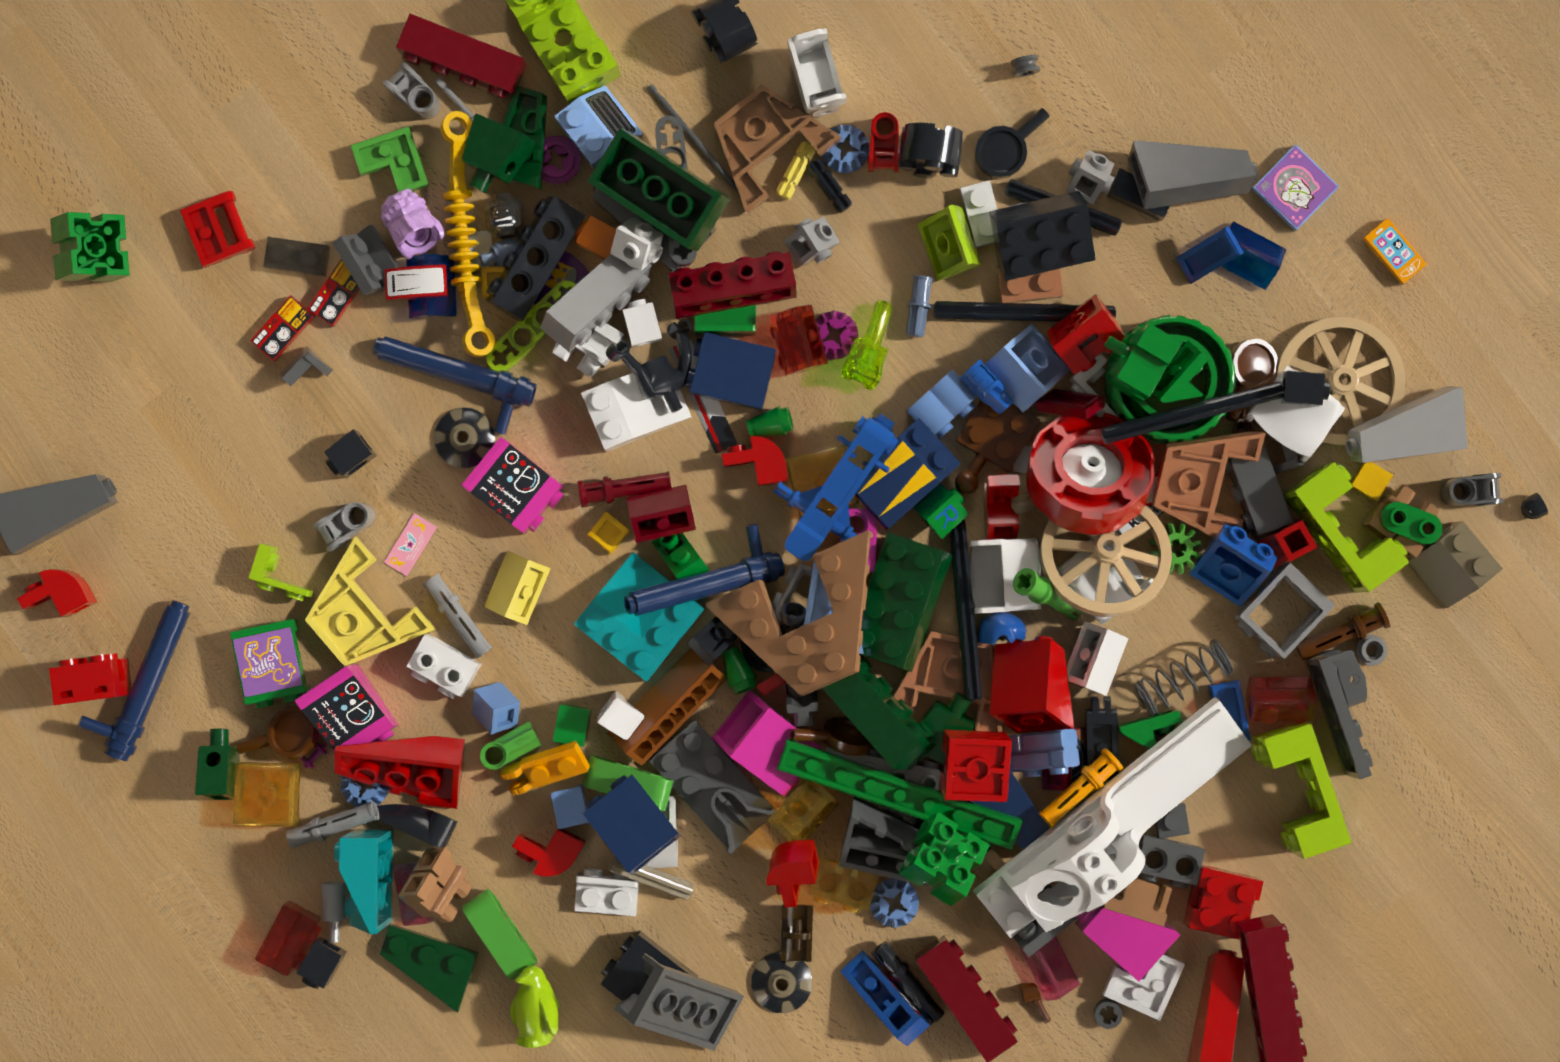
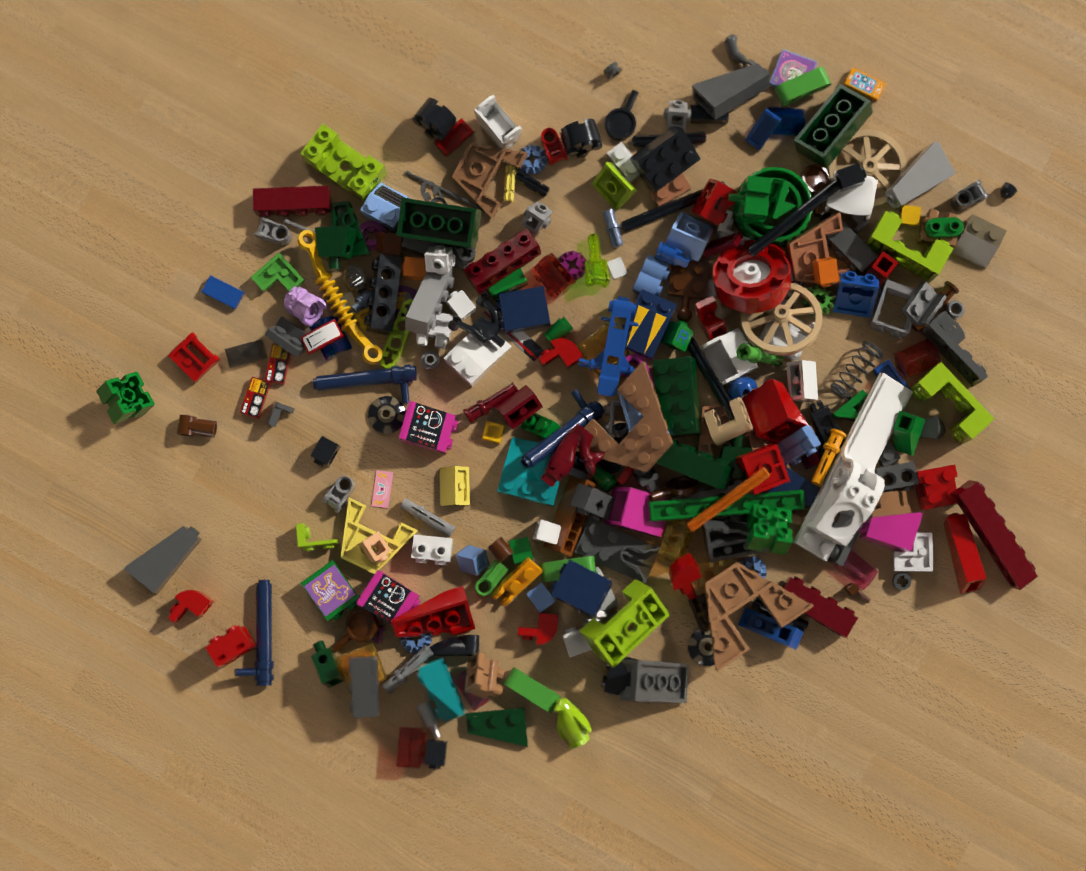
camera: 25 degrees left, 5 degrees down
(171, 331) = (192, 426): none -> reddish brown piece
(256, 825) = (364, 686): none -> dark grey wedge
(301, 149) = (223, 292): none -> blue tile
(359, 616) = (377, 541): none -> light nougat brick
(540, 713) = (500, 549): none -> reddish brown piece
(572, 183) = (388, 243): none -> reddish brown piece
(572, 385) = (430, 366): none -> light grey plate
(645, 919) = (612, 640): none -> lime plate
(692, 618) = (564, 455): none -> dark red piece
(706, 702) = (593, 502): none -> dark grey brick
(745, 66) = (455, 138): none -> red tile
(847, 924) = (733, 590): none -> medium nougat wing
(899, 367) = (617, 267): none -> white sticker
(903, 789) = (728, 499): none -> orange axle
(944, 686) = (724, 432): none -> tan connector
(1203, 511) = (825, 271): none -> orange brick
(1216, 802) = (907, 432): none -> green slope
(1220, 118) = (733, 51): none -> dark grey arm
(1252, 810) = (933, 428): none -> dark grey tile
(1299, 215) = (802, 86): none -> bright green beam
(1317, 296) = (833, 126): none -> dark green brick
(1326, 625) = (923, 305): none -> dark grey bracket

